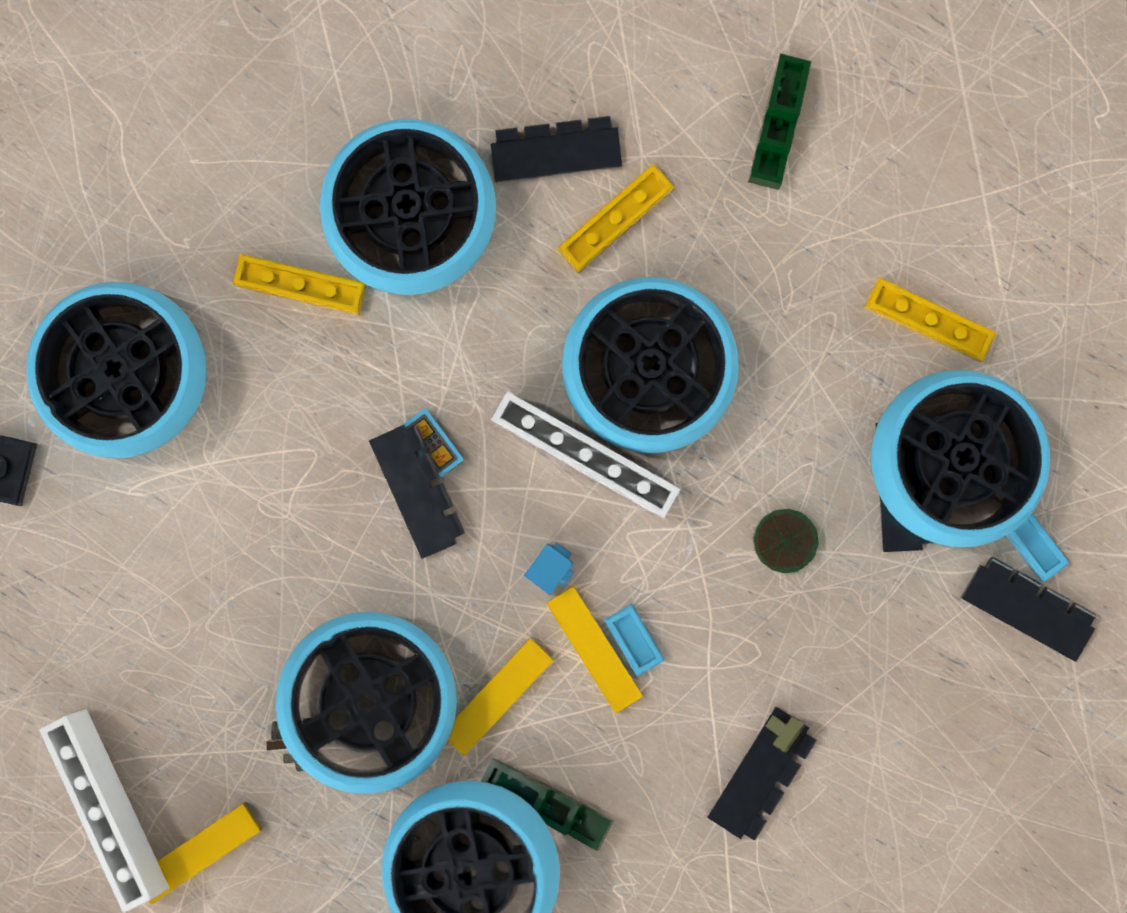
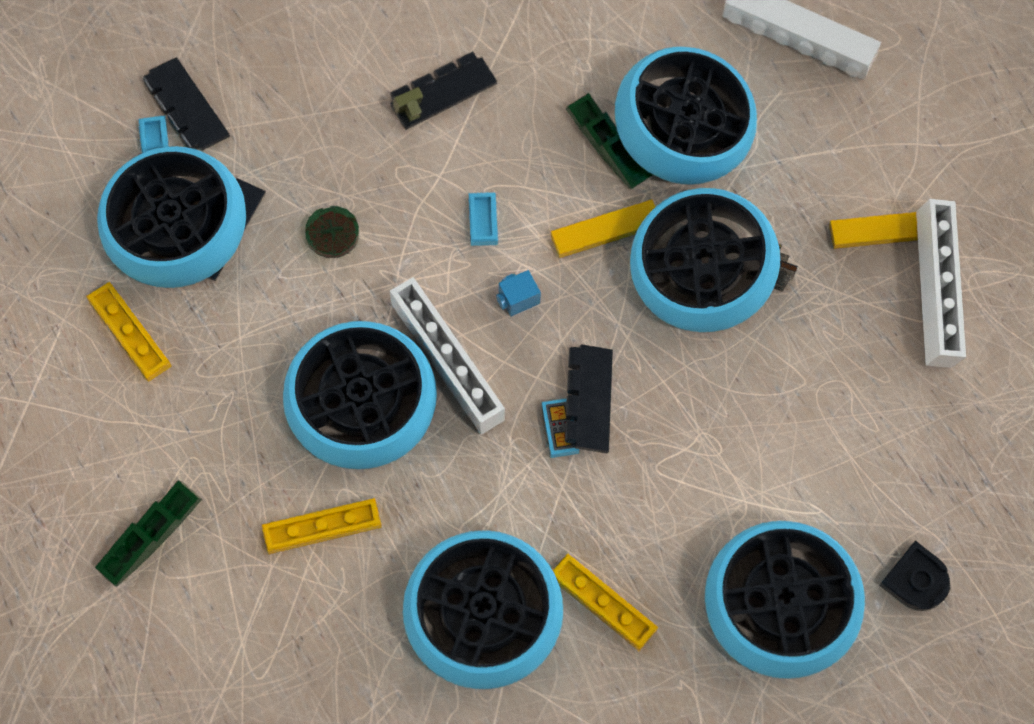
camera: 155 degrees left, 20 degrees down
(556, 154) = (346, 603): black windscreen -> none
(594, 649) = (516, 224): yellow tile -> none

